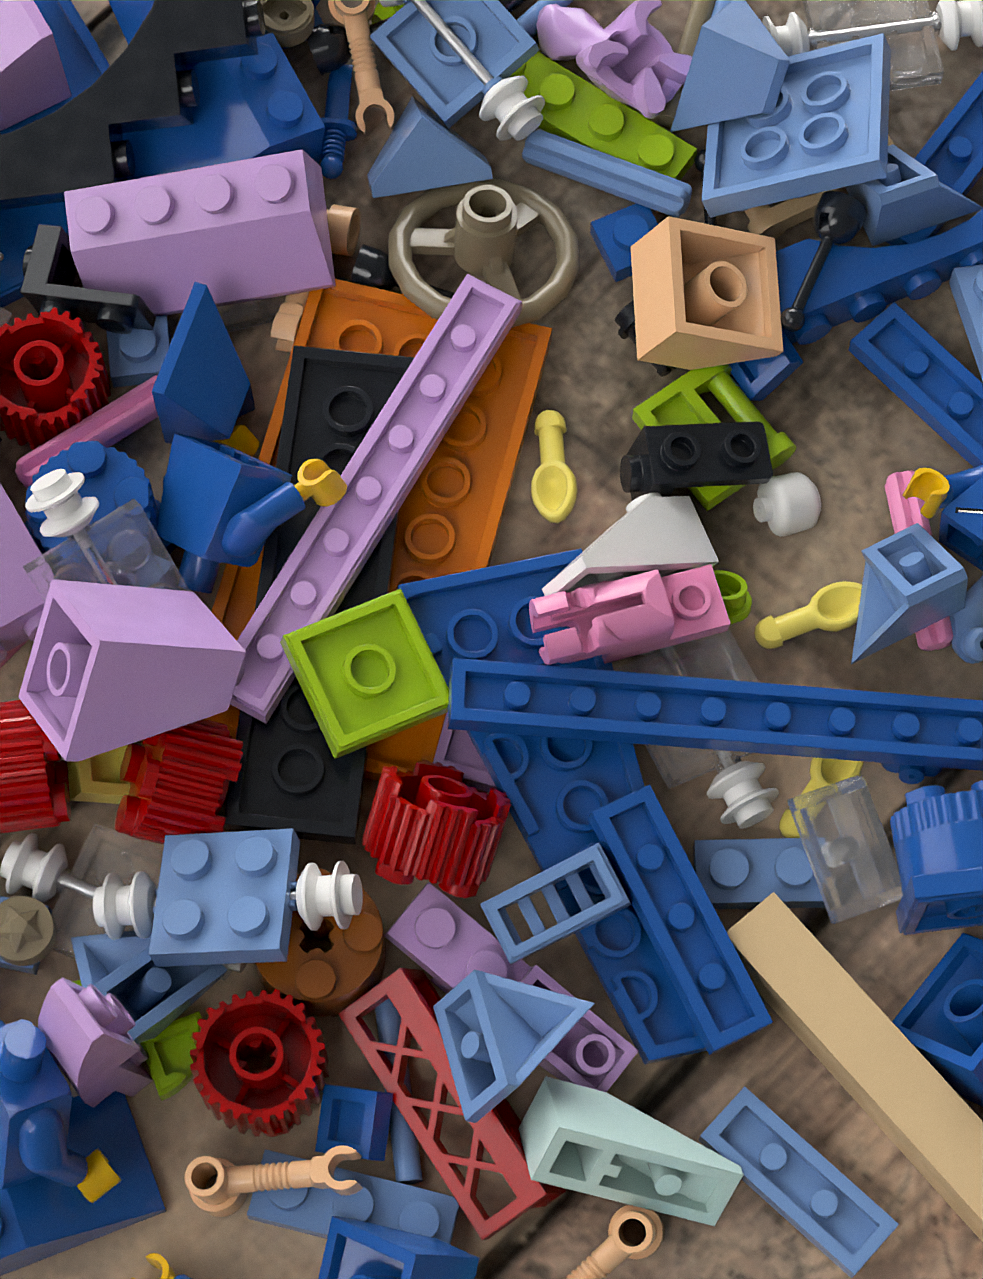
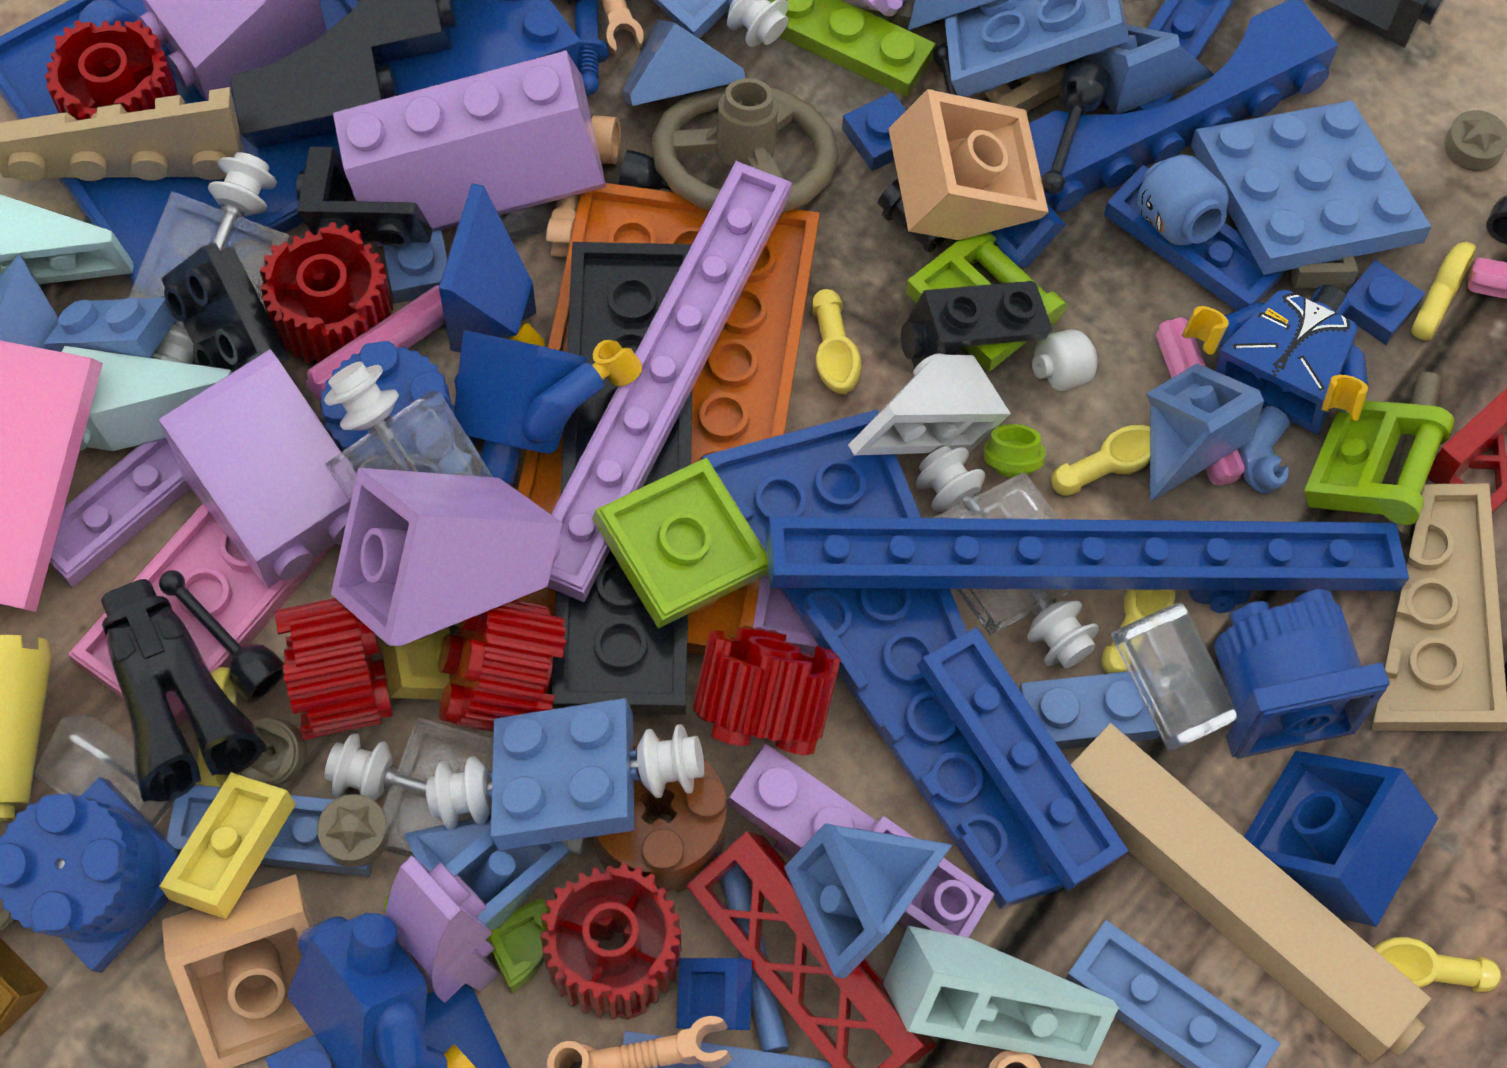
camera: 10 degrees left, 5 degrees down
(607, 173) = (851, 69): medium blue axle -> none
(609, 883) = (943, 722): medium blue slope -> none
(629, 615) = (934, 466): bright pink plate -> none
(925, 349) = (1183, 200): none -> medium blue head

